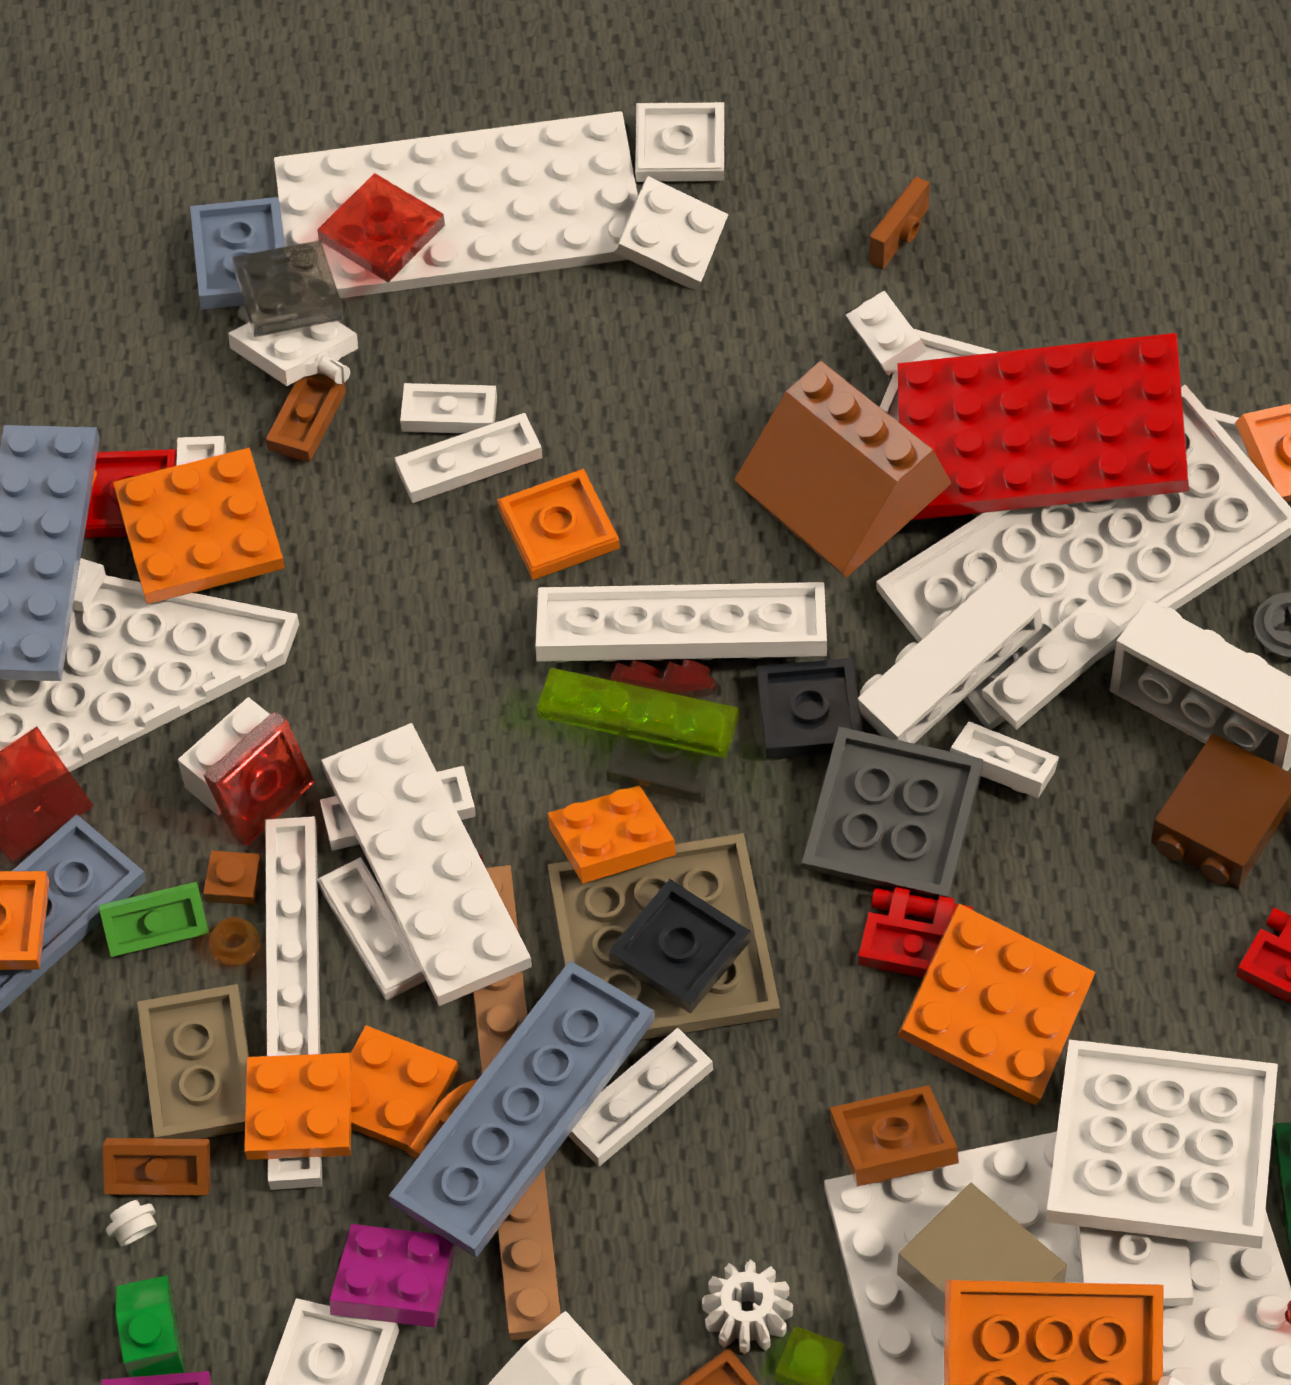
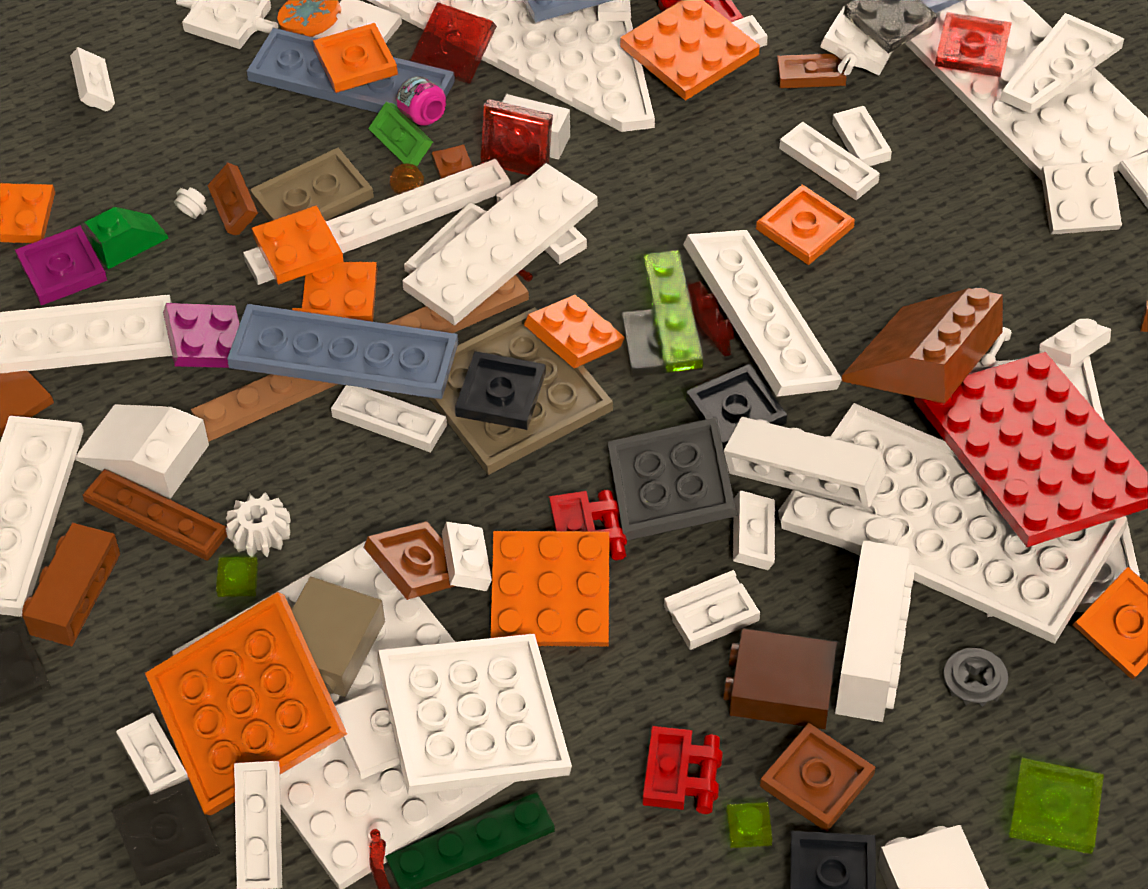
camera: 65 degrees right, 5 degrees down
(128, 865) = (421, 100): none -> dark pink head
(460, 156) = (1058, 61): none -> white wing
(908, 1079) = (466, 556): none -> white plate
(1095, 847) = (711, 609): none -> white plate

